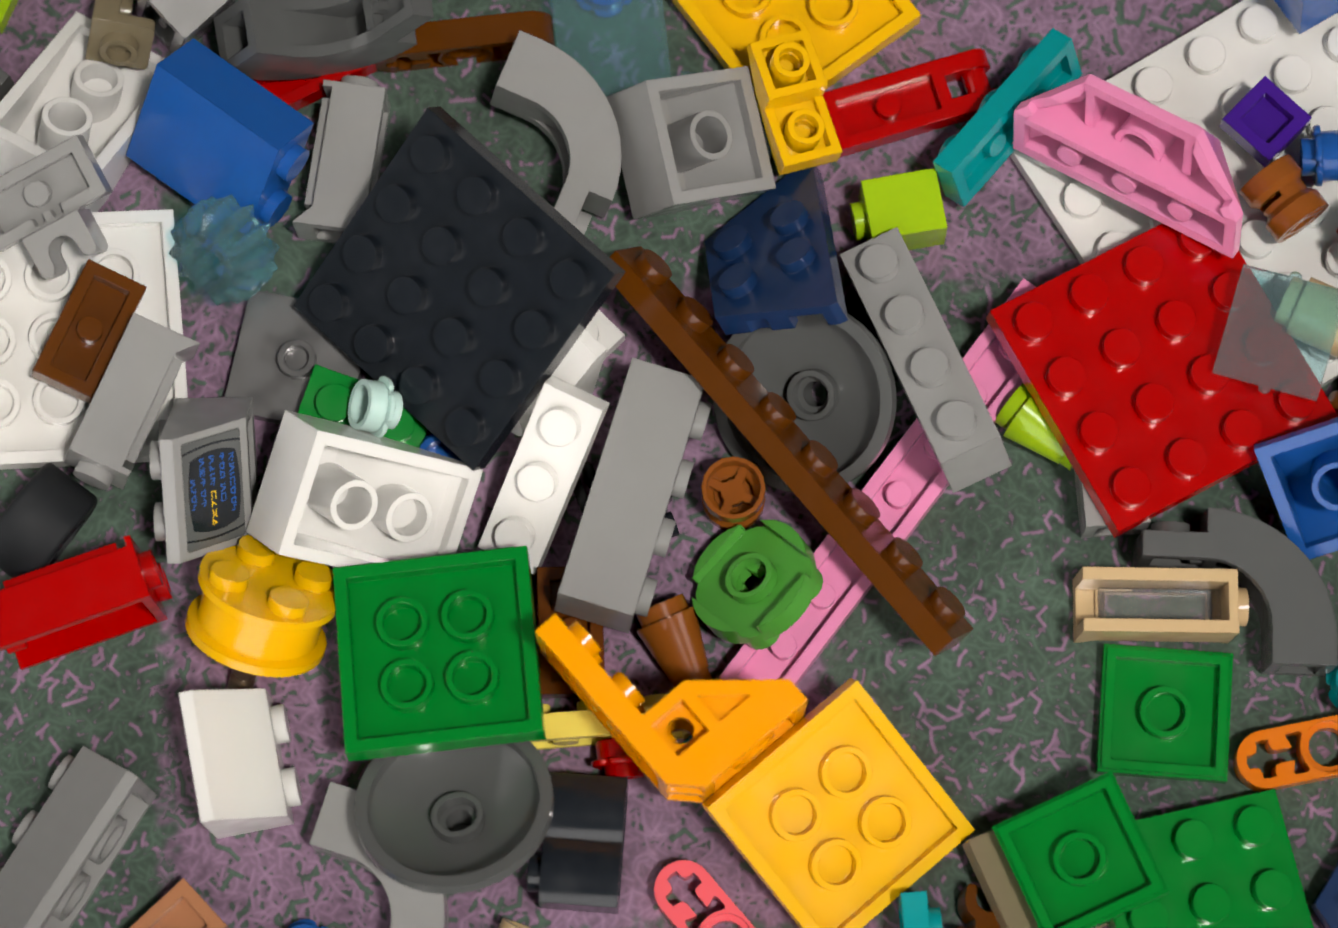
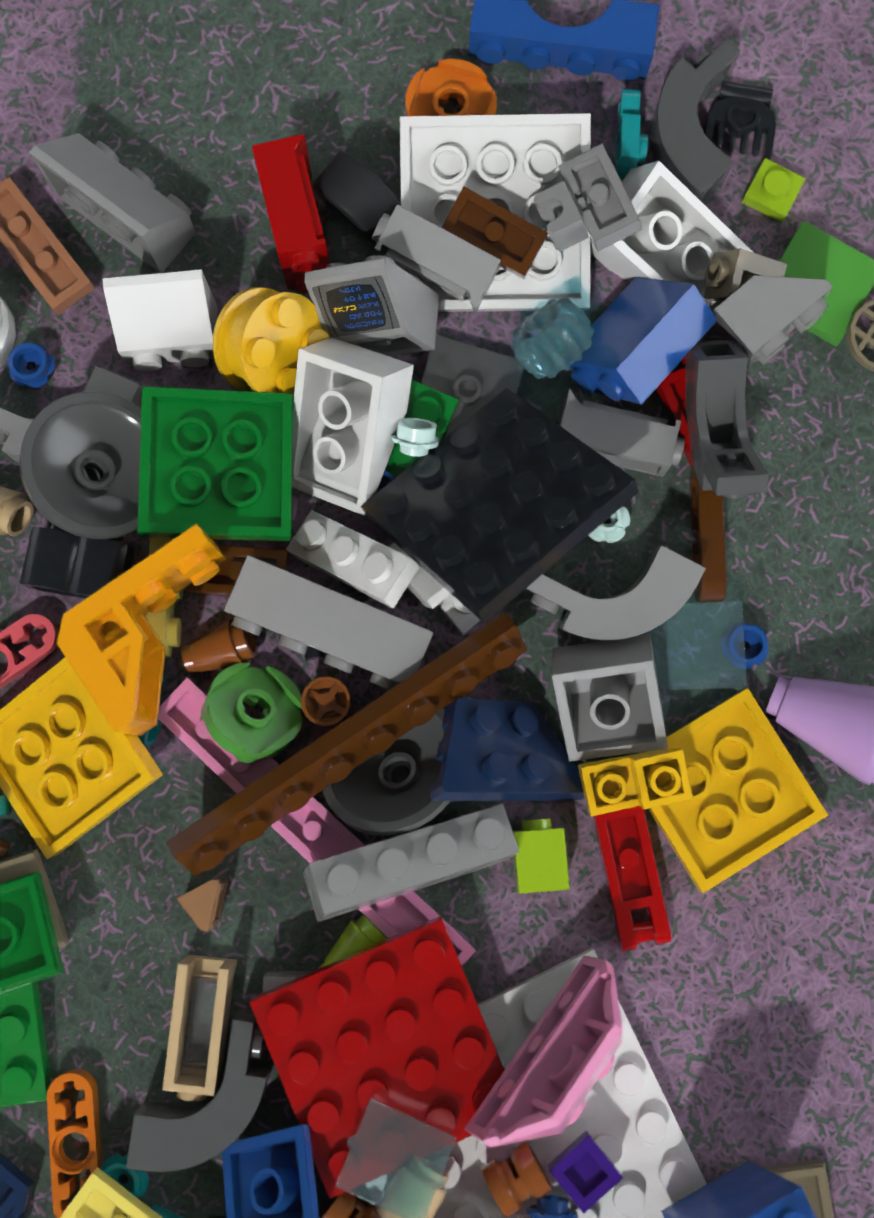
camera: 90 degrees right, 5 degrees up
(987, 139) = (637, 983): teal plate -> none
(1003, 617) = (205, 903): none -> medium nougat slope
(1164, 713) = (119, 1020): green tile -> none

